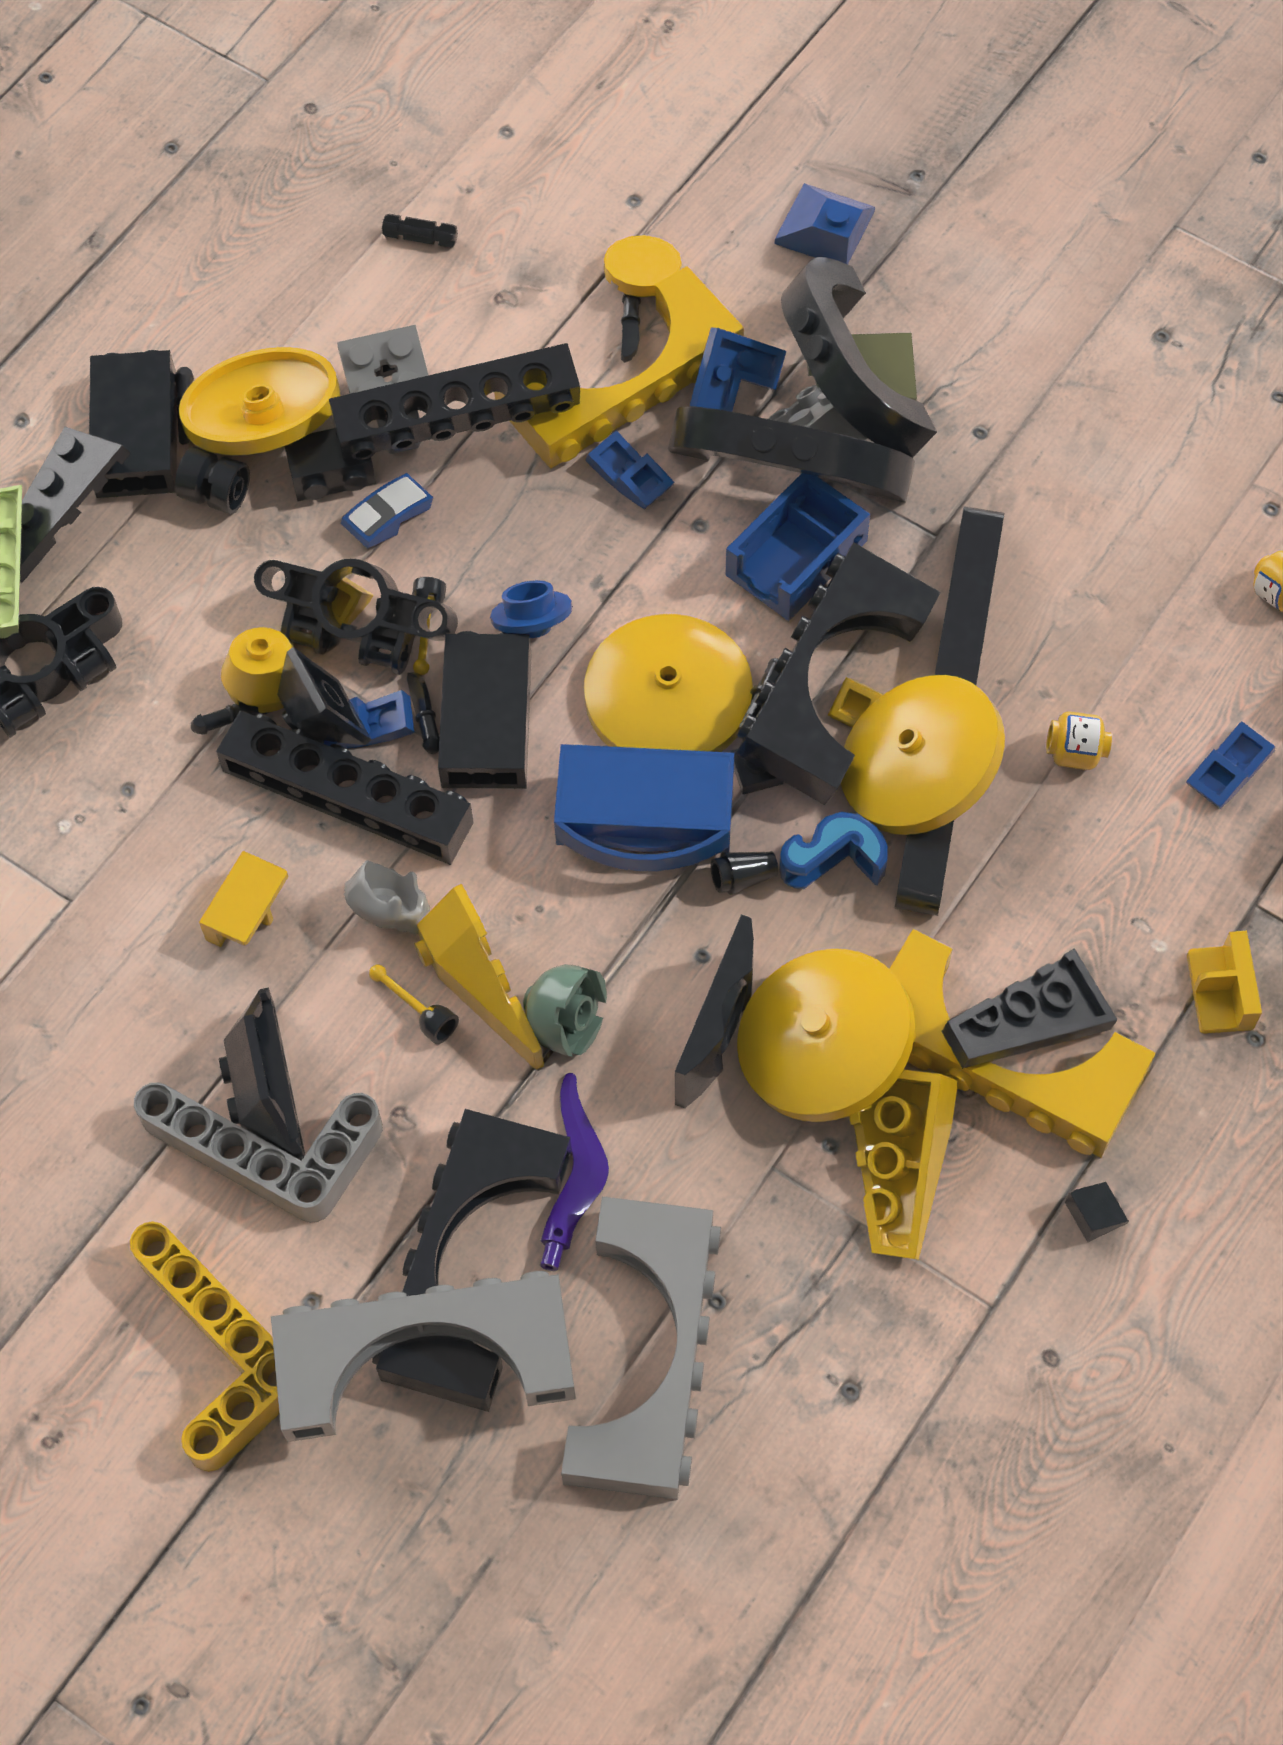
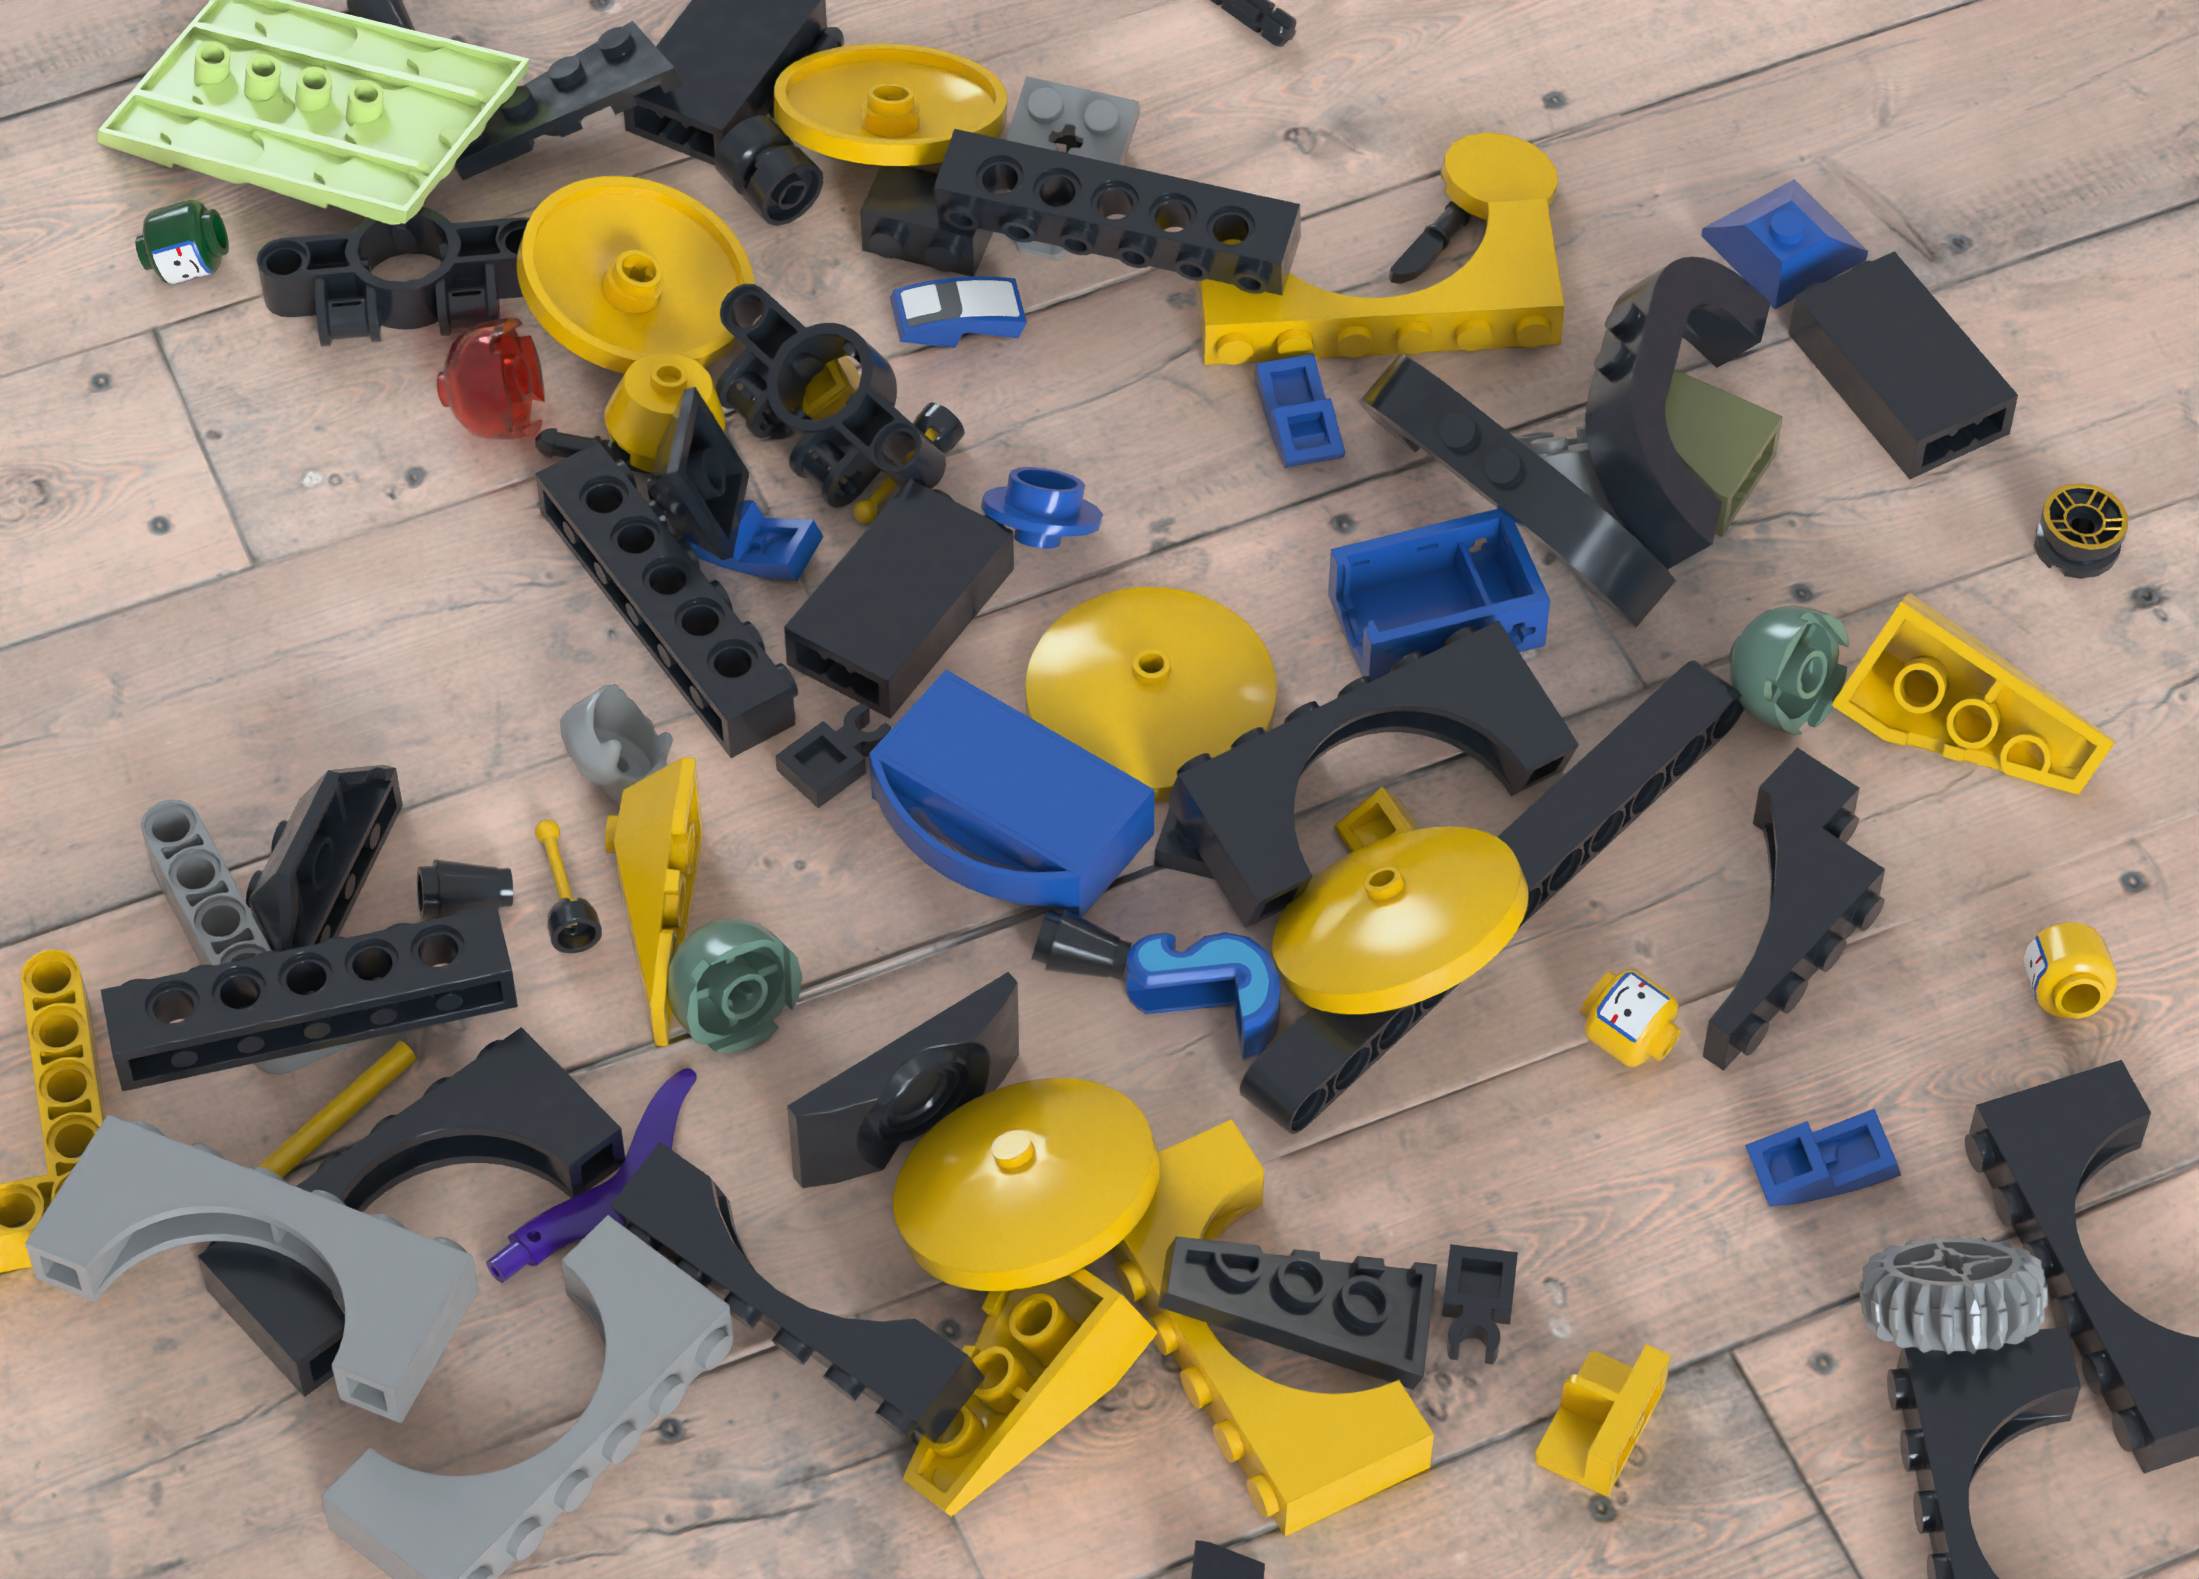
camera: 30 degrees right, 10 degrees down
(141, 706) = (492, 381): none -> clear red cylinder
(180, 590) = (630, 271): none -> yellow dish
(243, 901) = (442, 659): yellow panel -> none
(292, 1223) = (287, 1023): none -> black brick
(354, 1041) = (461, 886): none -> black cone
(379, 1229) = (339, 1110): none -> yellow bar
(424, 714) = (831, 554): black piece -> none
(515, 835) = (830, 760): none -> black plate
(728, 361) = (1512, 336): blue plate -> none
(837, 1189) = (896, 1363): none -> black arch
(944, 266) = (1902, 364): none -> black brick
(1014, 482) = (1789, 666): none -> sand green cylinder
(1105, 303) = (2081, 530): none -> black wheel
(1108, 452) = (1957, 697): none -> yellow wedge
(1111, 951) = (1478, 1296): none -> black plate
(1121, 615) = (1816, 899): none -> black arch

